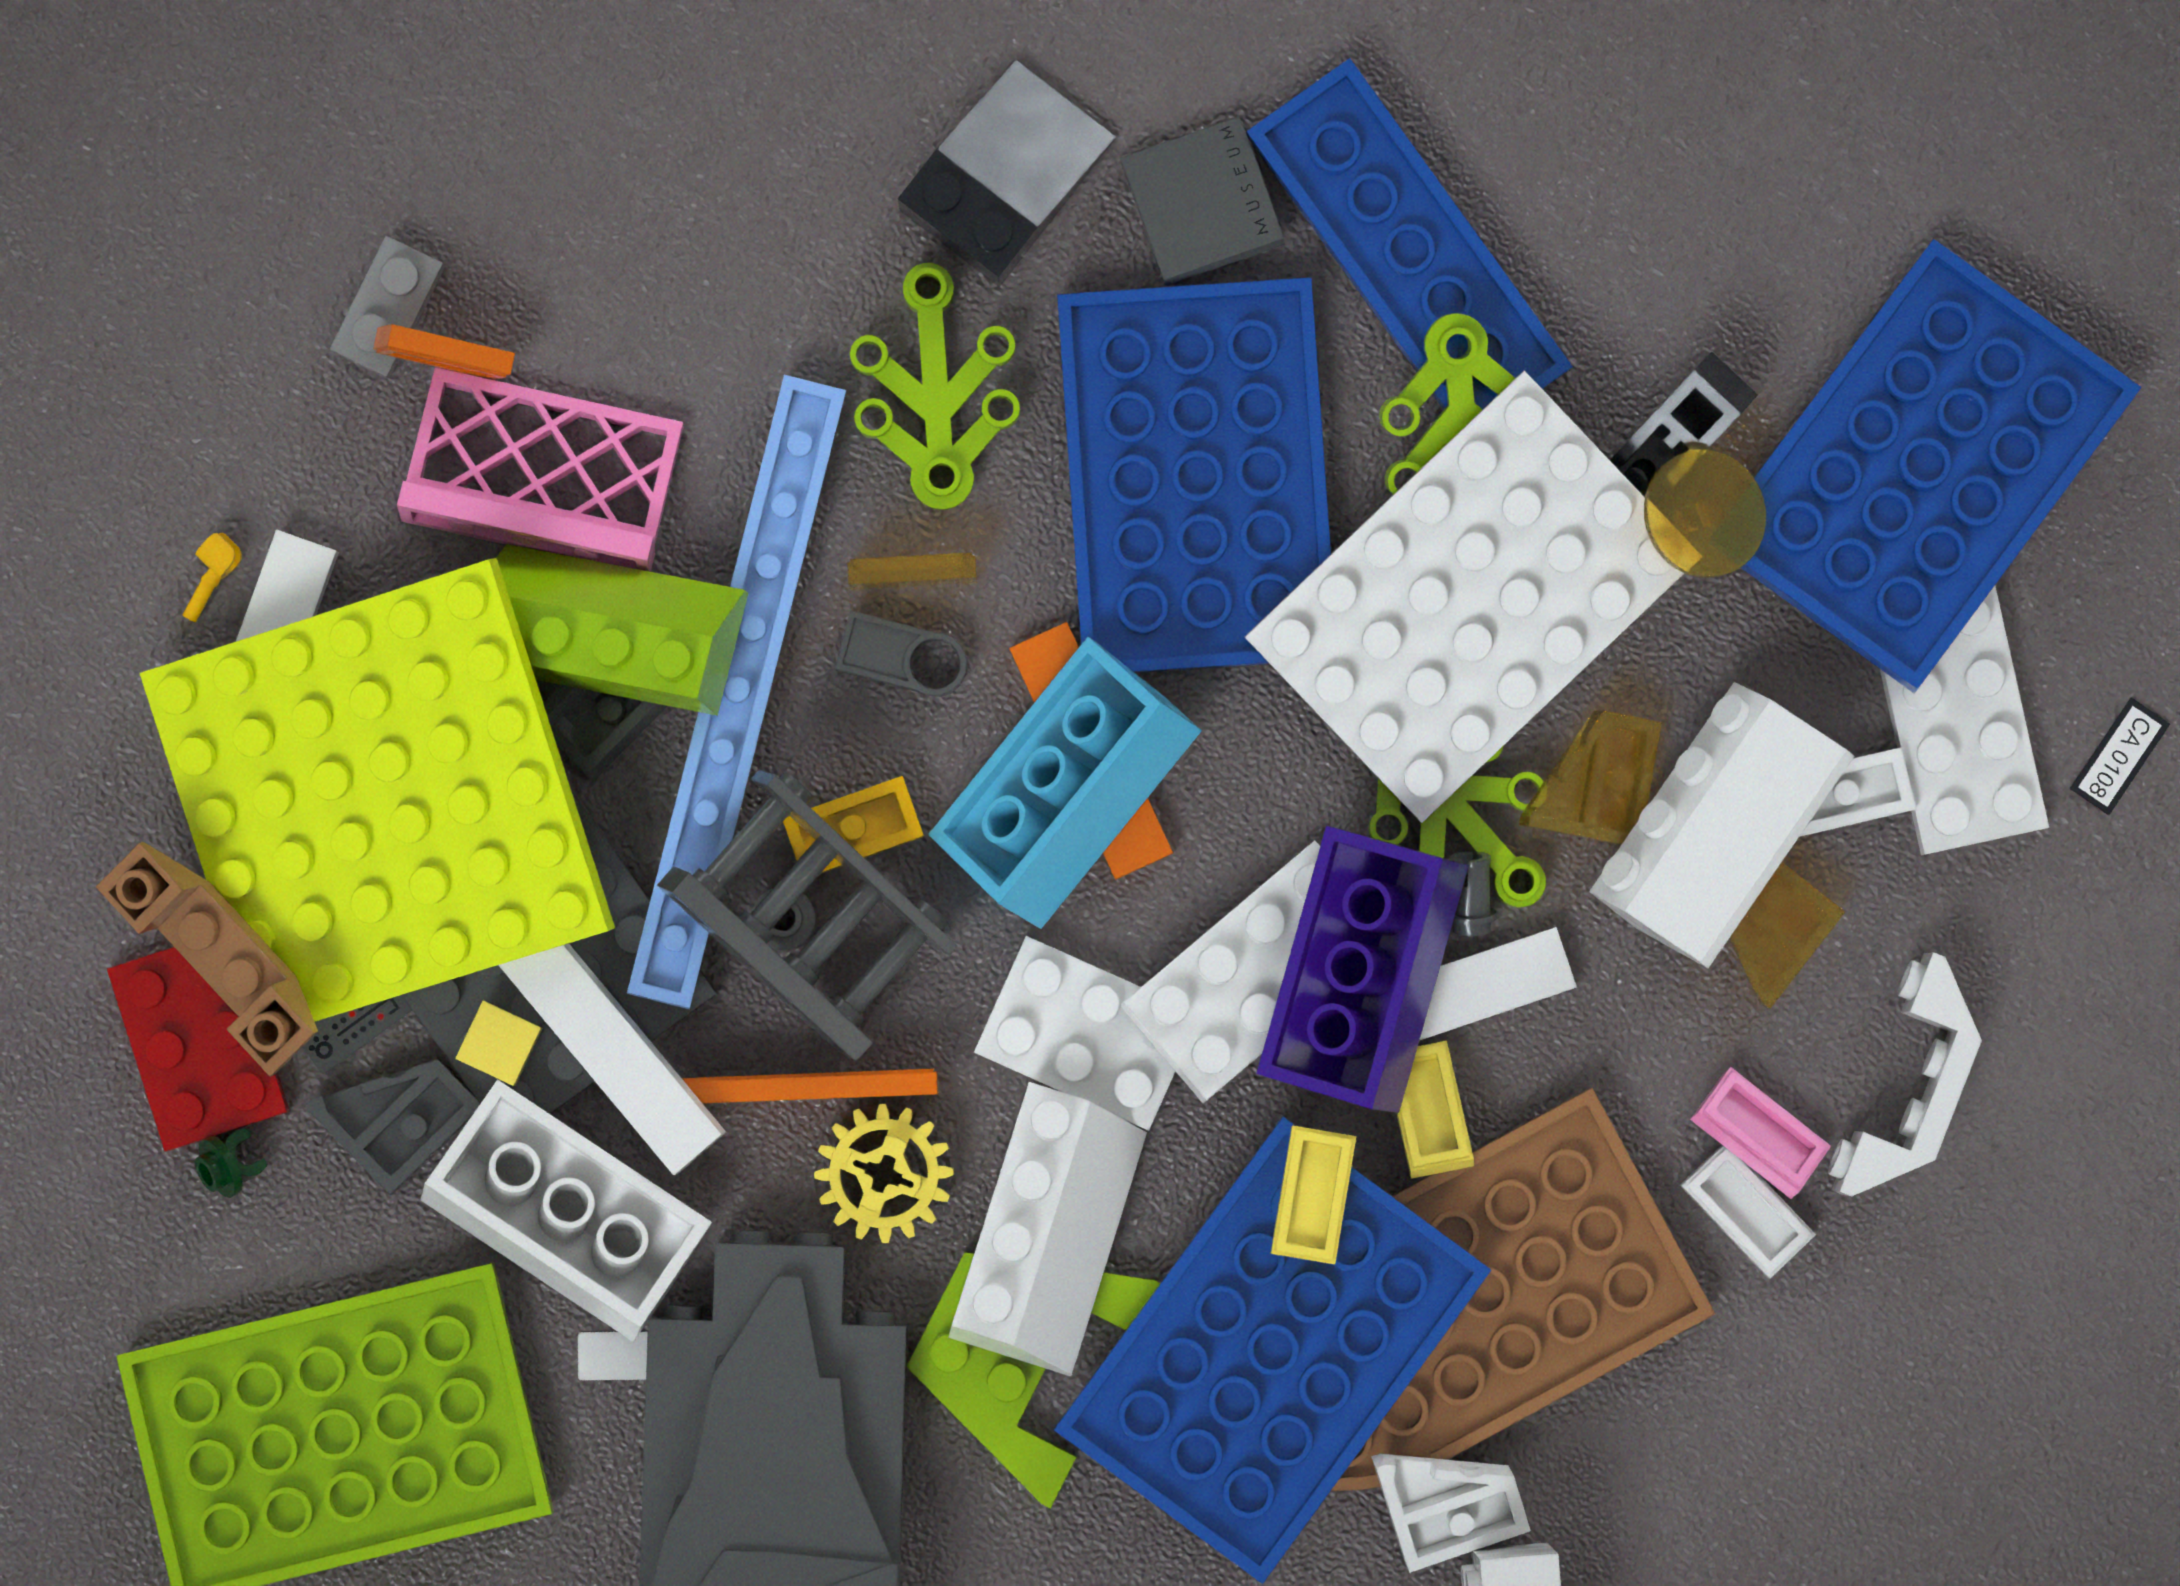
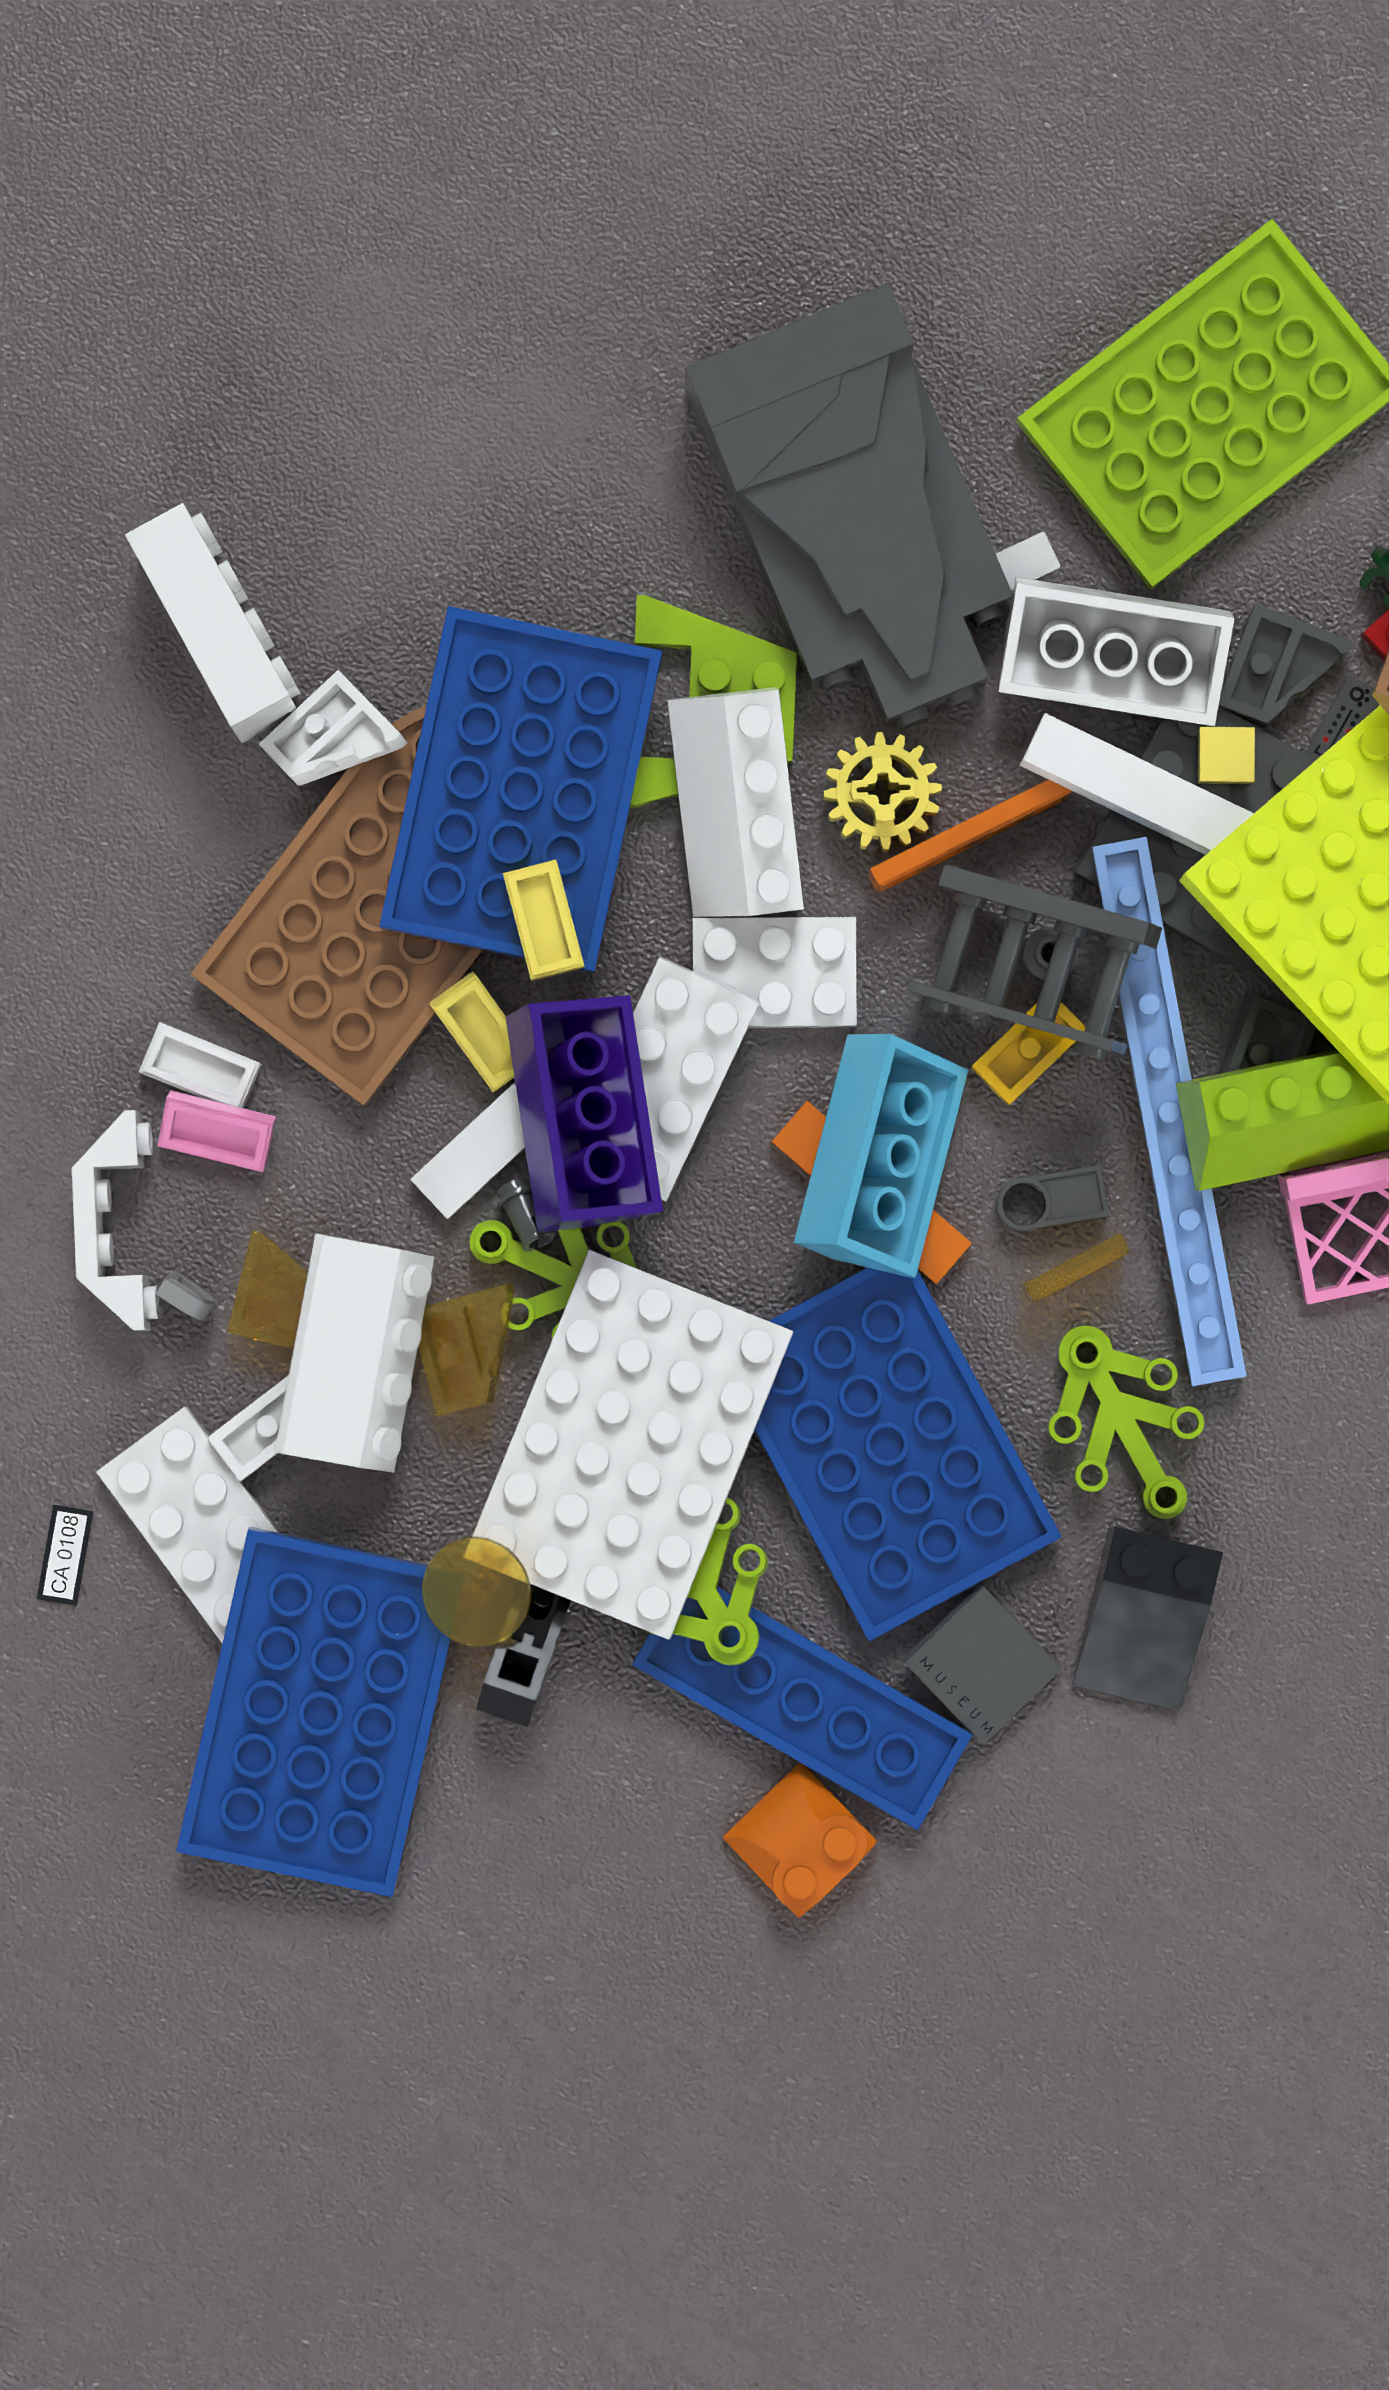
camera: 160 degrees right, 0 degrees up
(1476, 104) = (800, 1840): none -> orange slope
(1871, 970) = (186, 1296): none -> light grey tile

